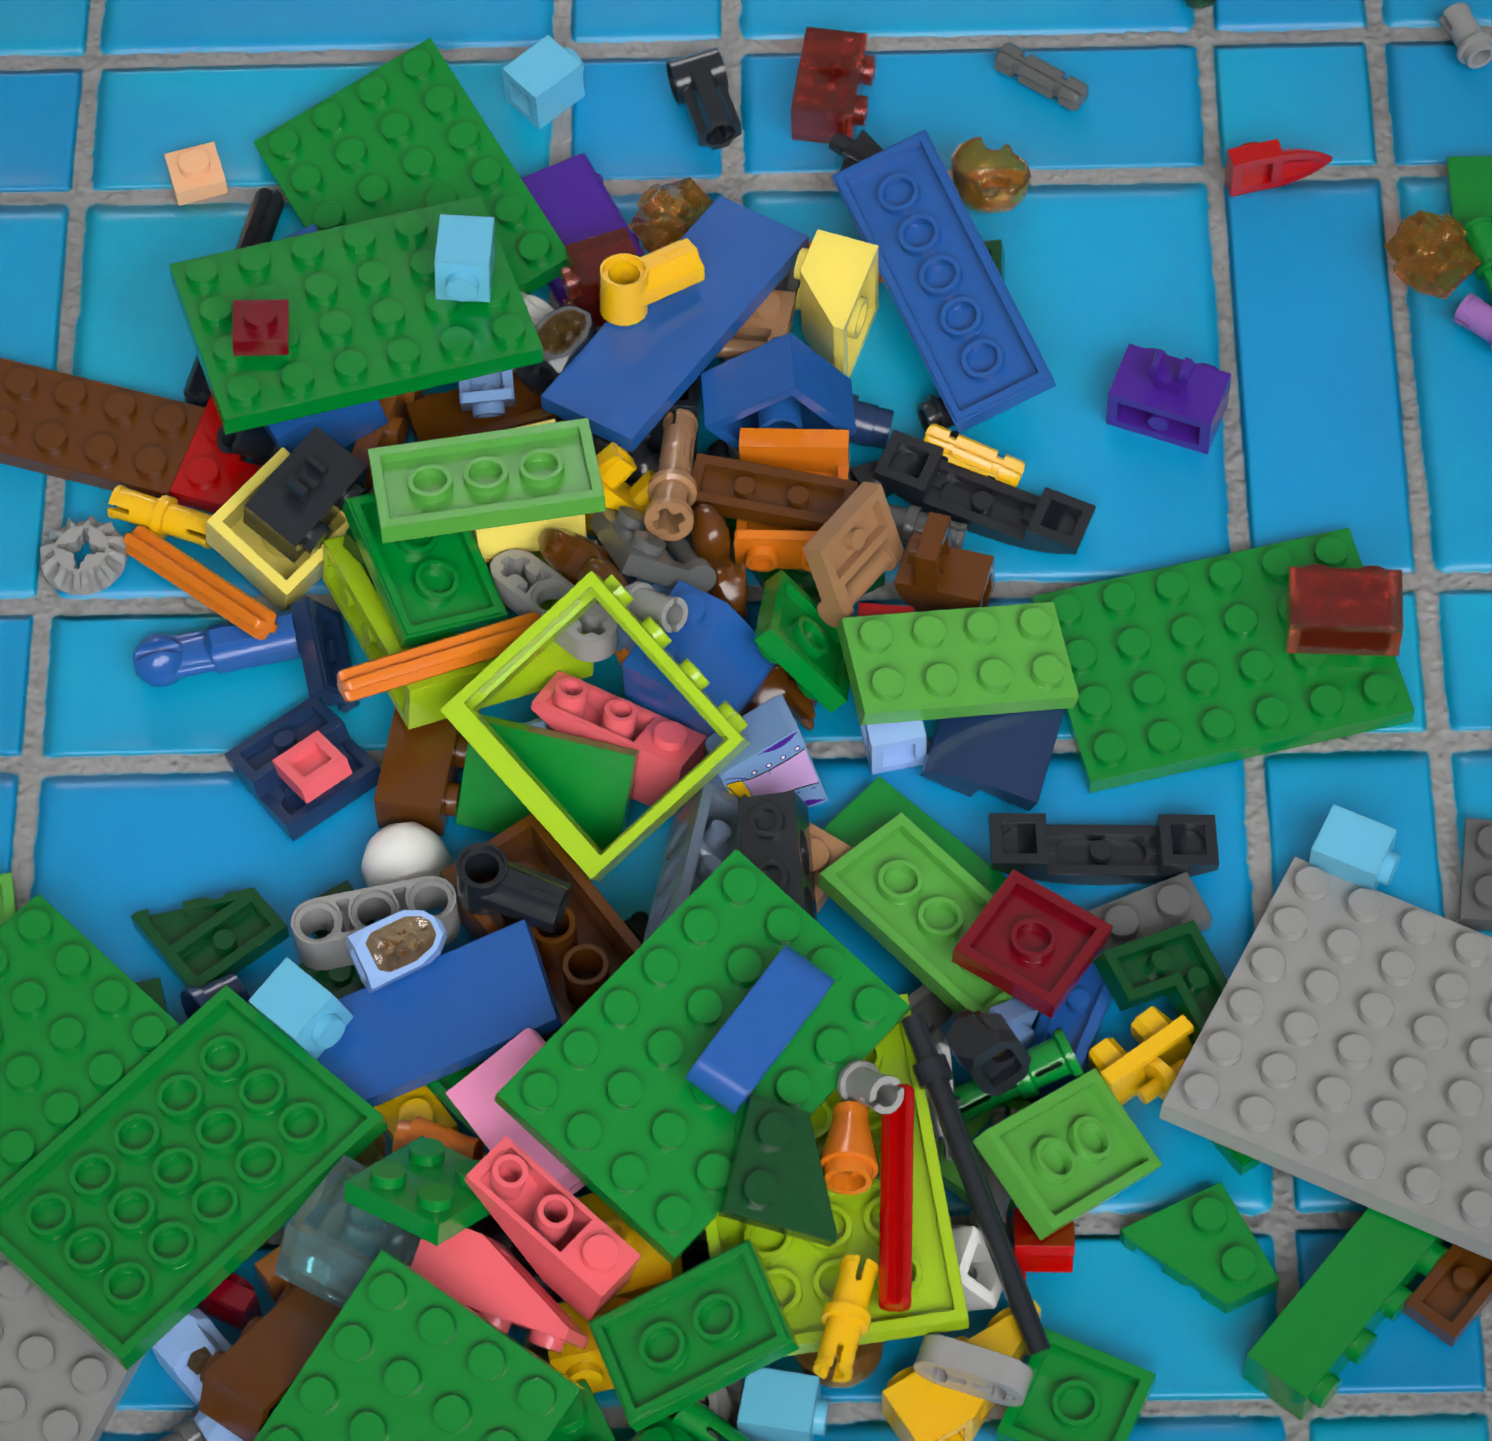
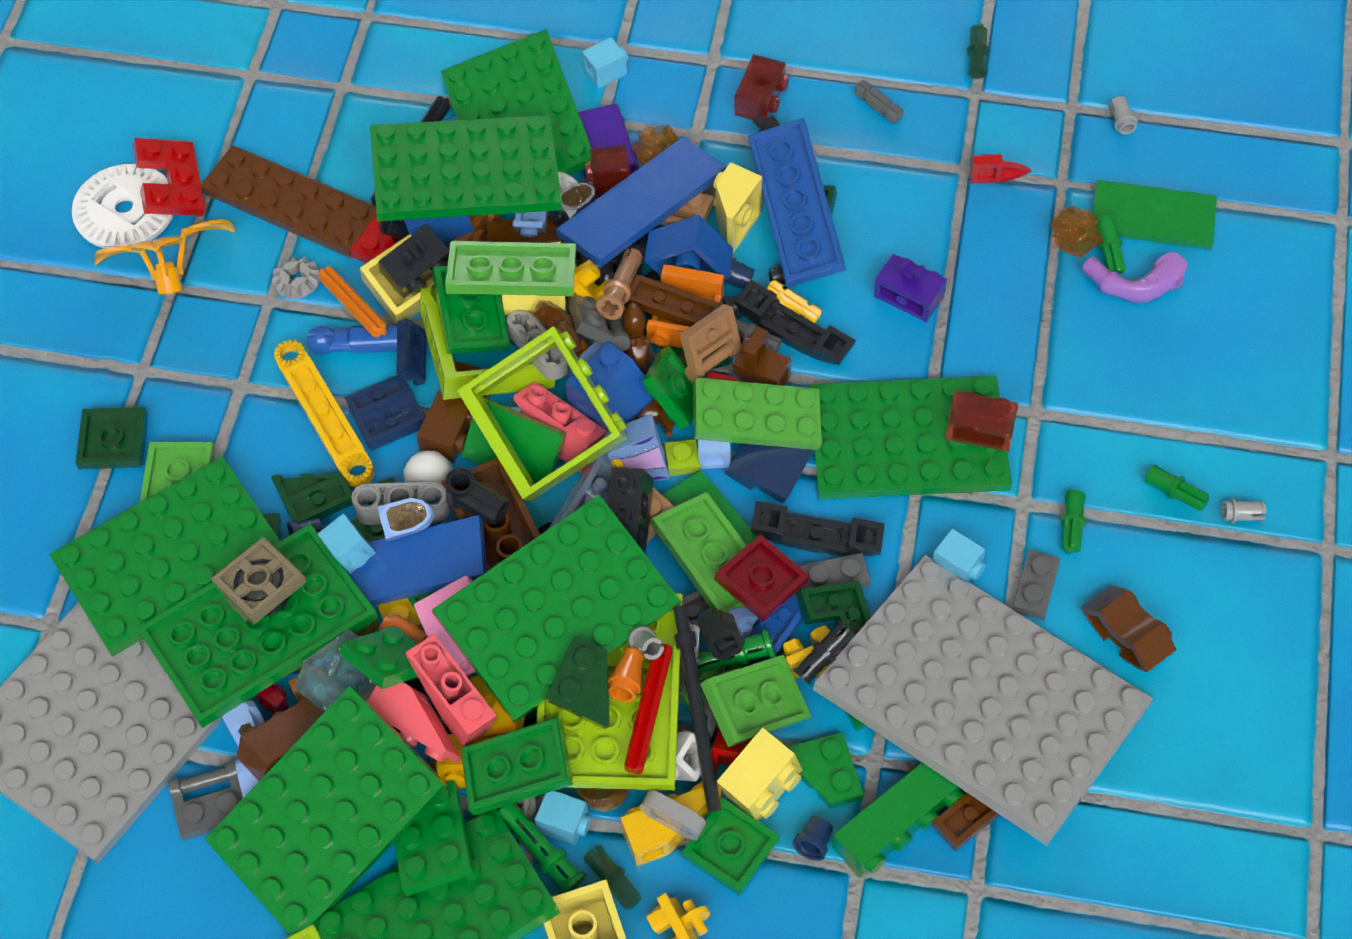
camera: 10 degrees right, 0 degrees up
(159, 515) = (341, 261): yellow pin -> none
(175, 1100) = (261, 581): none -> dark tan piece
(195, 788) = (324, 413): none -> yellow plate
(196, 173) = (407, 83): light nougat plate -> none
(261, 327) = (408, 165): dark red plate -> none
(312, 766) = (388, 411): coral plate -> none
(431, 658) = (456, 362): orange axle -> none
(464, 258) = (528, 146): medium azure brick -> none
(634, 282) = (620, 175): yellow piece -> none
(665, 610) = (594, 356): light grey pin -> none
(703, 87) = (691, 79): black piece -> none
(760, 1029) = (588, 598): blue beam -> none
(841, 759) = (682, 457): none -> lime plate
(846, 1318) = (603, 772): yellow pin -> none
(989, 178) = (835, 151): clear orange hair -> none
(1105, 1278) = (761, 776): none -> light yellow brick
(1165, 1052) = (824, 652): none -> black pin
(1212, 1369) = (814, 839): none -> dark blue piece

